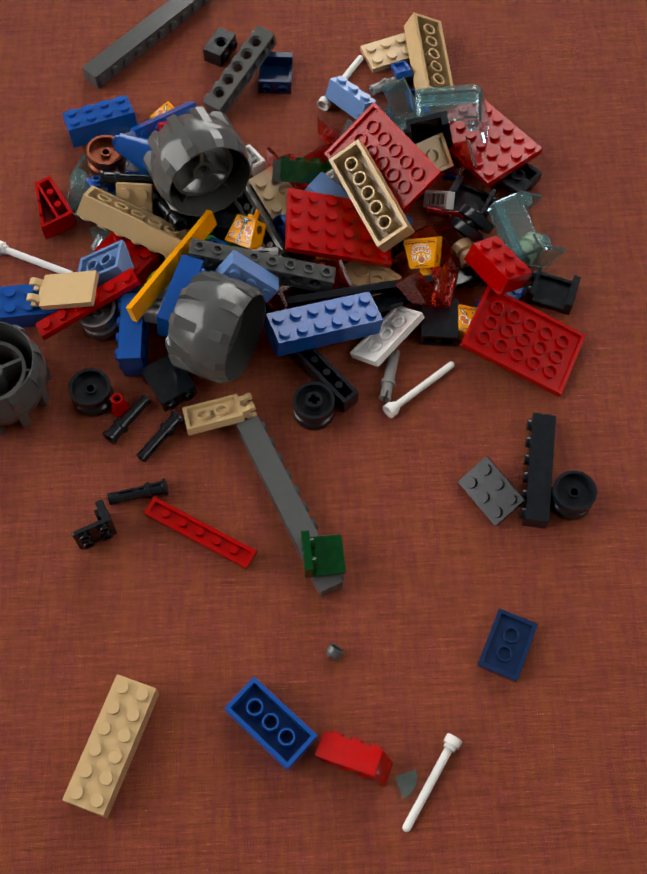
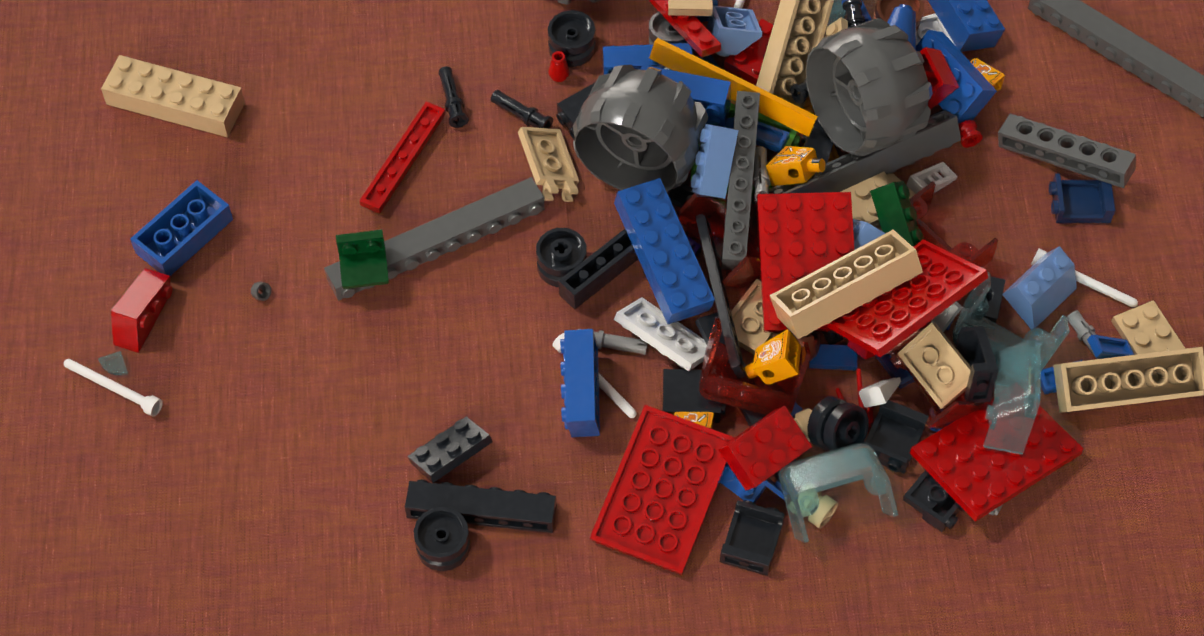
camera: 90 degrees right, 5 degrees down
(95, 532) = (410, 64): black bracket -> none
(121, 425) = (535, 73): black pin -> none
(220, 47) = (1116, 130): black brick -> none
(438, 389) = (581, 383): none -> blue brick
(507, 645) = (258, 464): dark blue plate -> none

